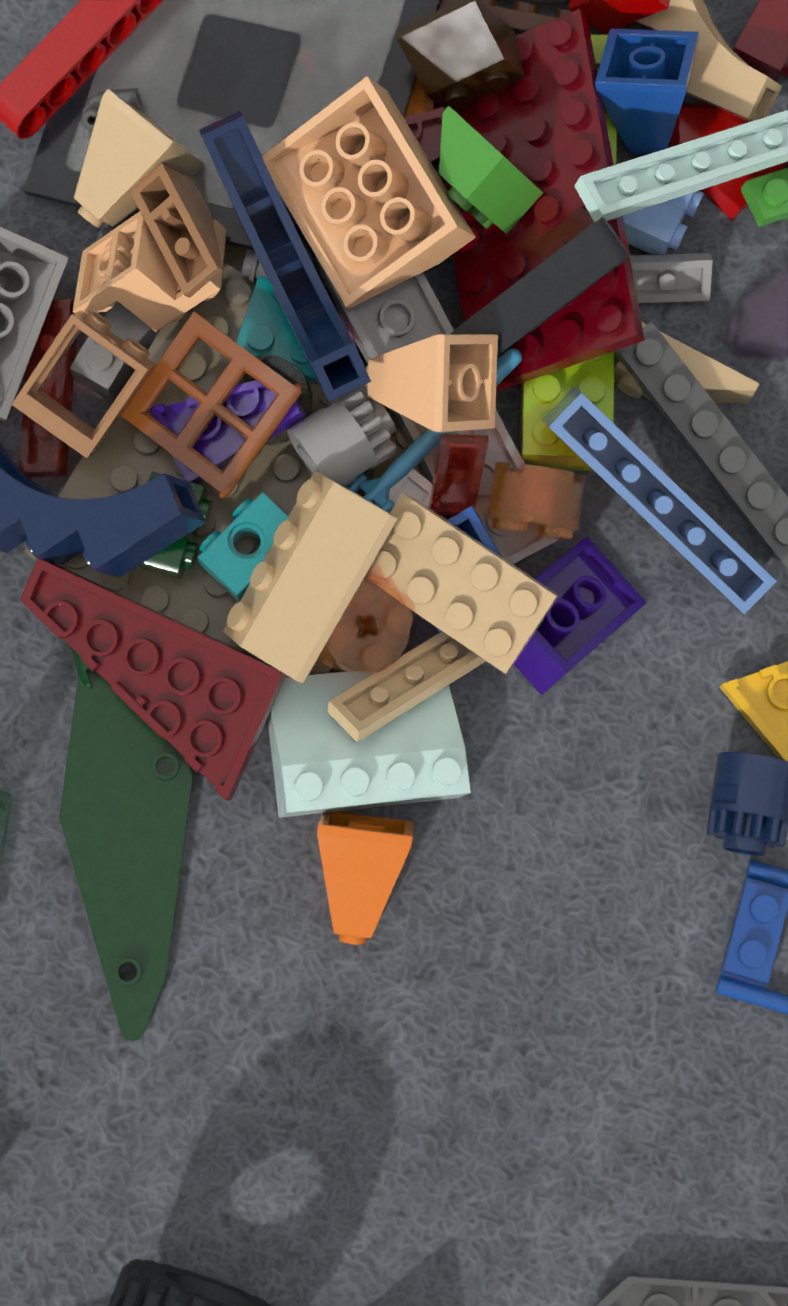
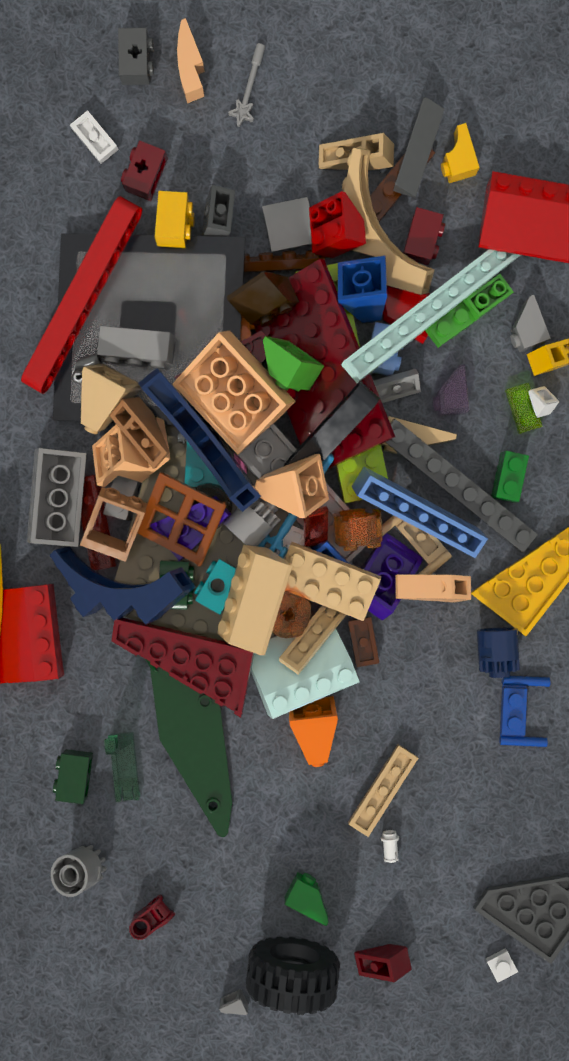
camera: 10 degrees left, 10 degrees up
(209, 86) = (136, 346): none -> light grey brick
(265, 1201) = (306, 898): none -> green slope
(454, 1139) = (390, 846): none -> white pin
(466, 1024) = (383, 790): none -> tan plate
(496, 728) = (363, 642): none -> reddish brown plate
(650, 565) = (425, 544): none -> tan plate
(654, 650) = (433, 587): none -> light nougat slope

